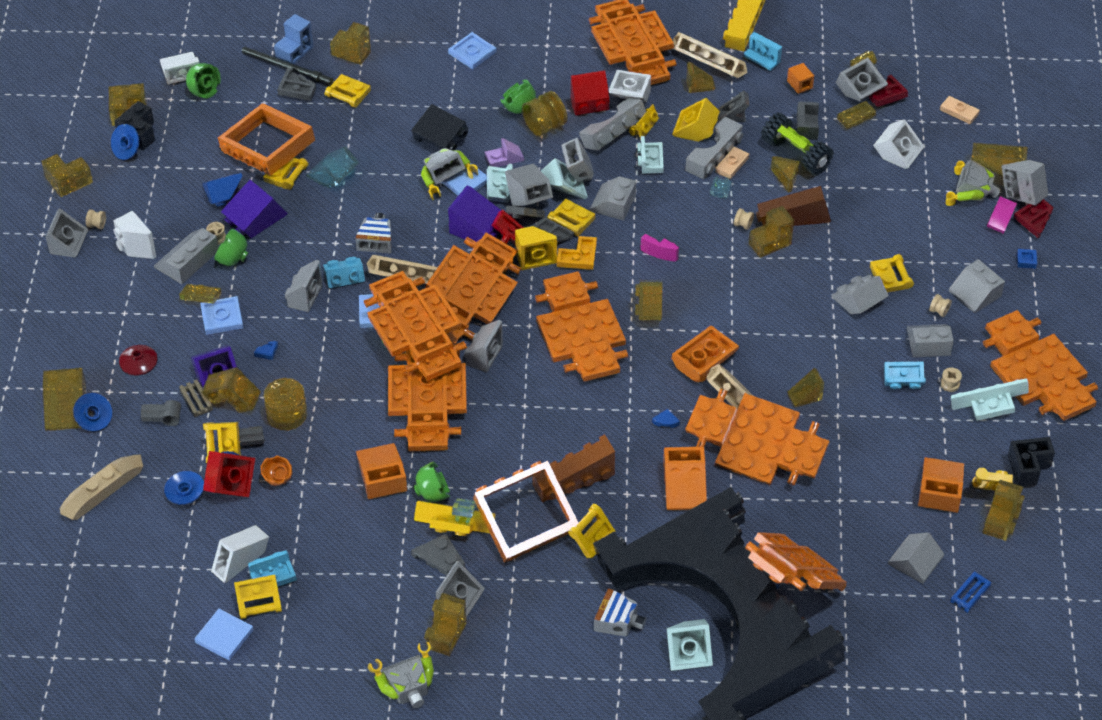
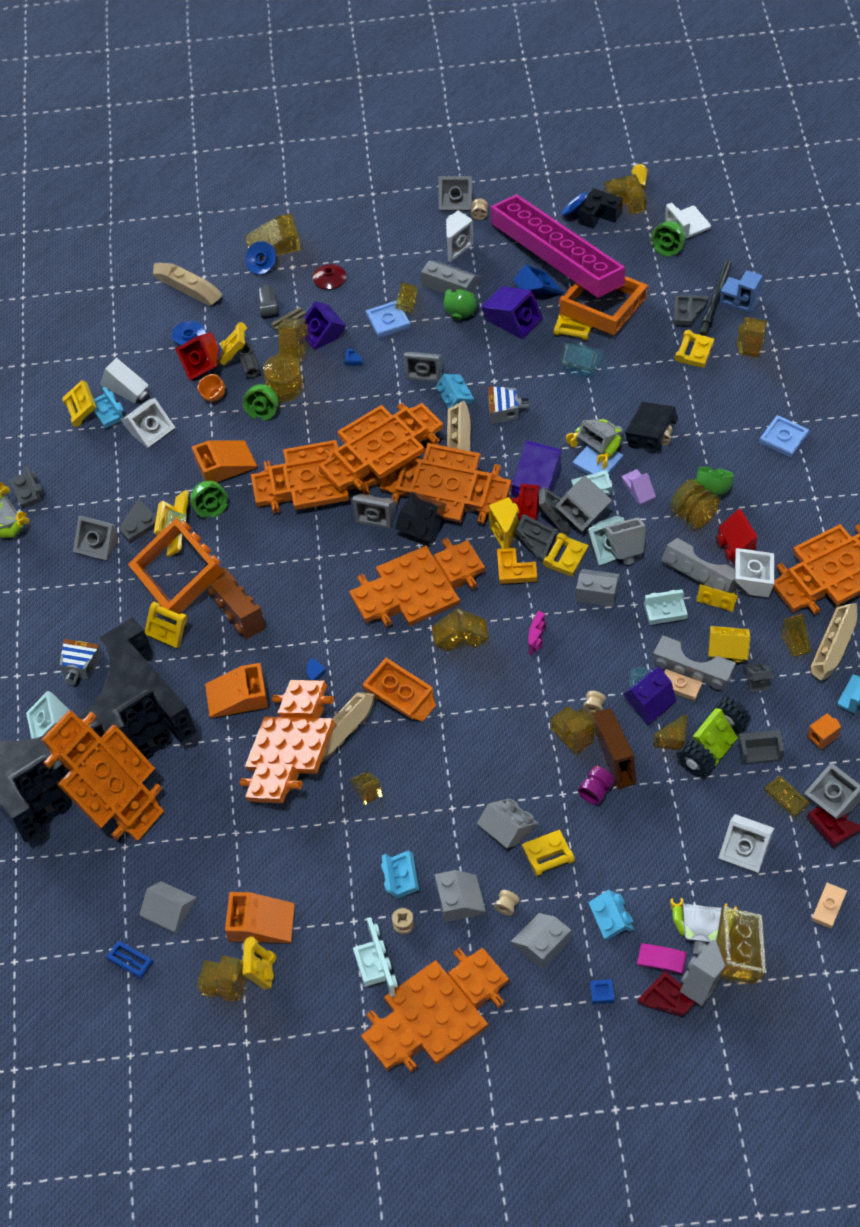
camera: 85 degrees right, 5 degrees up
(66, 177) = (526, 176): clear yellow brick -> none
(99, 90) = (641, 173): none -> yellow cone
(189, 155) = (558, 246): none -> dark pink brick
(217, 229) = (482, 291): tan wheel -> none
(224, 634) = (47, 393): light blue tile -> none
(304, 534) = (148, 422): none -> white slope
(311, 426) = (261, 402): none -> bright green cylinder
(358, 656) = (25, 488): none -> dark grey bracket
(447, 624) = (56, 534): clear yellow brick -> none
(510, 306) = (421, 517): none -> black slope
(745, 175) = (651, 695): none -> dark purple slope
(829, 227) = (596, 785): none -> magenta wheel
(957, 240) = (611, 914): none -> medium azure bracket
(1028, 457) = (297, 997): black brick -> none

